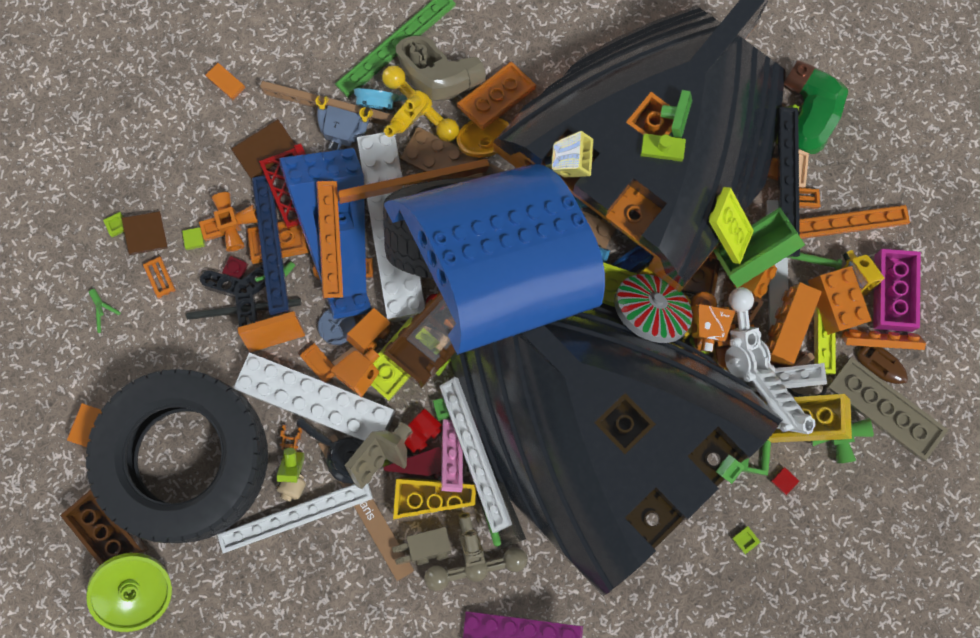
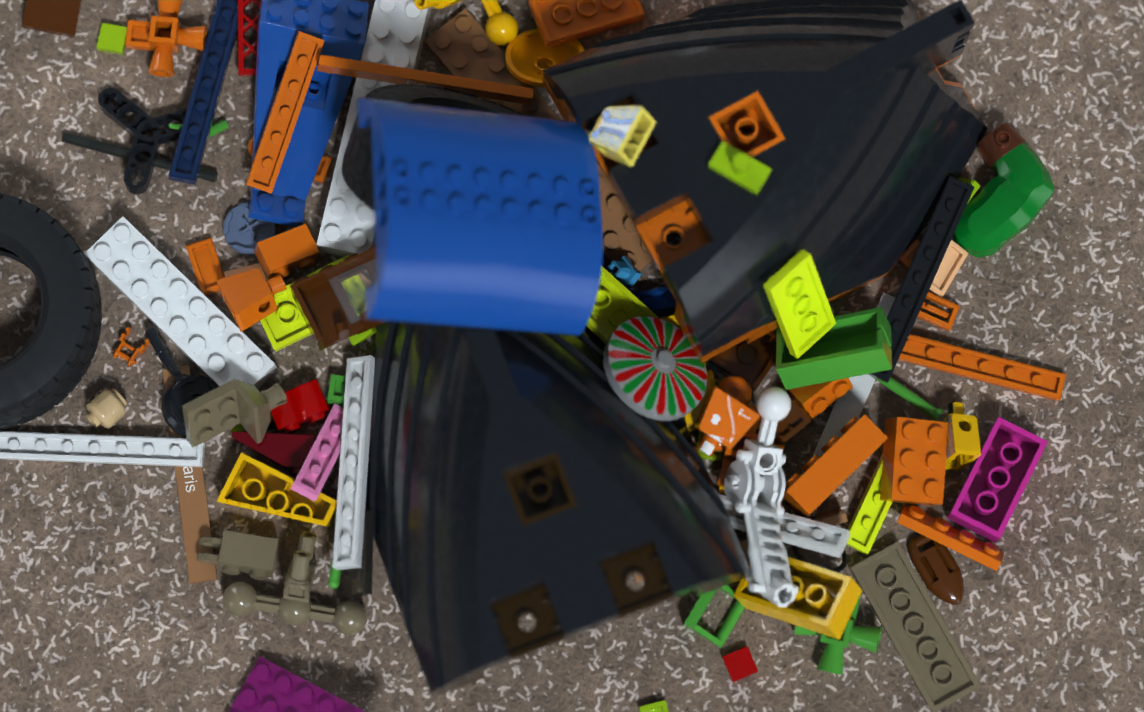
camera: 20 degrees right, 0 degrees up
(166, 291) = (49, 93): orange tile -> none
(235, 268) = (150, 99): dark red plate -> none
(271, 331) = (162, 201): orange tile -> none
(290, 466) = (116, 381): lime tile -> none
(292, 241) = (237, 91): orange tile -> none
(678, 113) = (777, 134): bright green tile -> none
(730, 469) = (647, 599): bright green plate -> none

